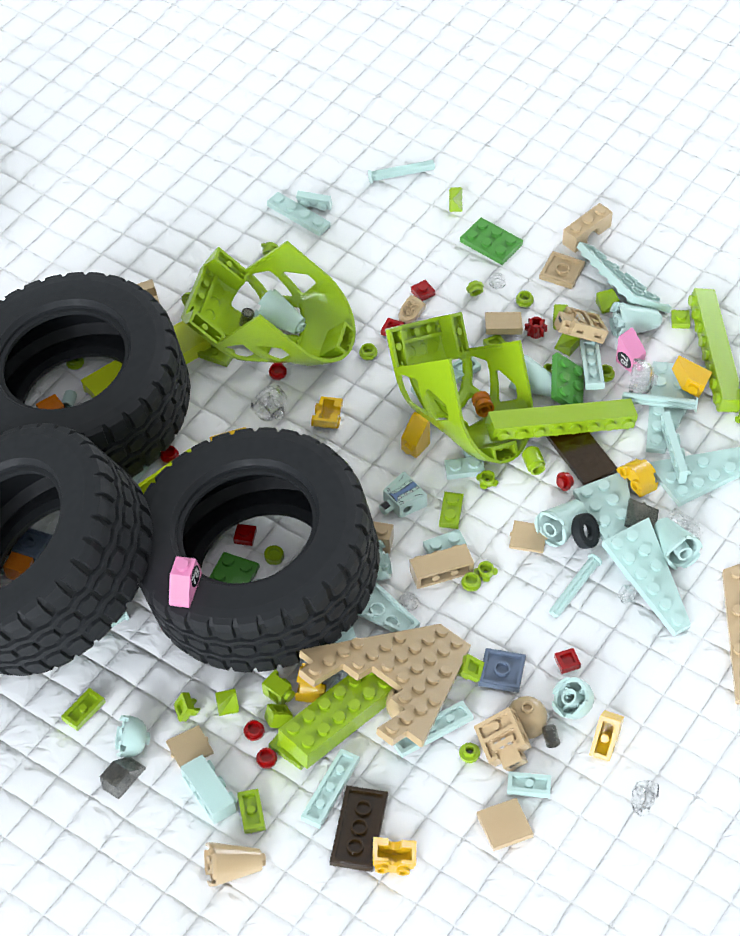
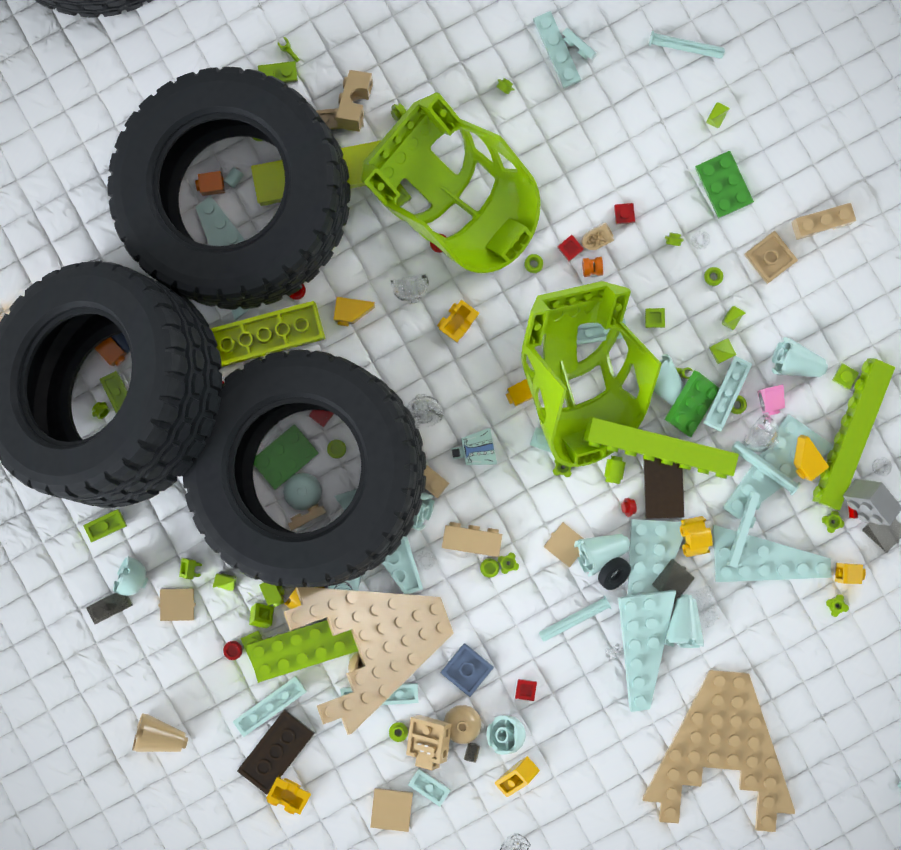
camera: 30 degrees right, 35 degrees up
(183, 581) = (212, 505): bright pink slope -> none
(209, 789) = (172, 657): light aqua brick -> none
(246, 315) = (442, 171): clear smoke hinge -> none
(251, 811) = (197, 694): lime plate -> none
(254, 730) = (235, 618): red plate -> none
(280, 312) = (470, 184): light aqua cone -> none
(444, 541) = (488, 516): light aqua plate -> none
(451, 510) = (514, 482): lime plate -> none
(471, 668) = (440, 659): lime tile -> none
(482, 403) = (601, 389): orange wheel -> none
(503, 323) = (676, 298): tan tile -> none
(536, 327) = (706, 314): red gear -> none
(581, 325) = (744, 345): tan piece -> none
(605, 300) = (789, 321): lime slope -> none
(625, 283) = (816, 307): light aqua wing -> none

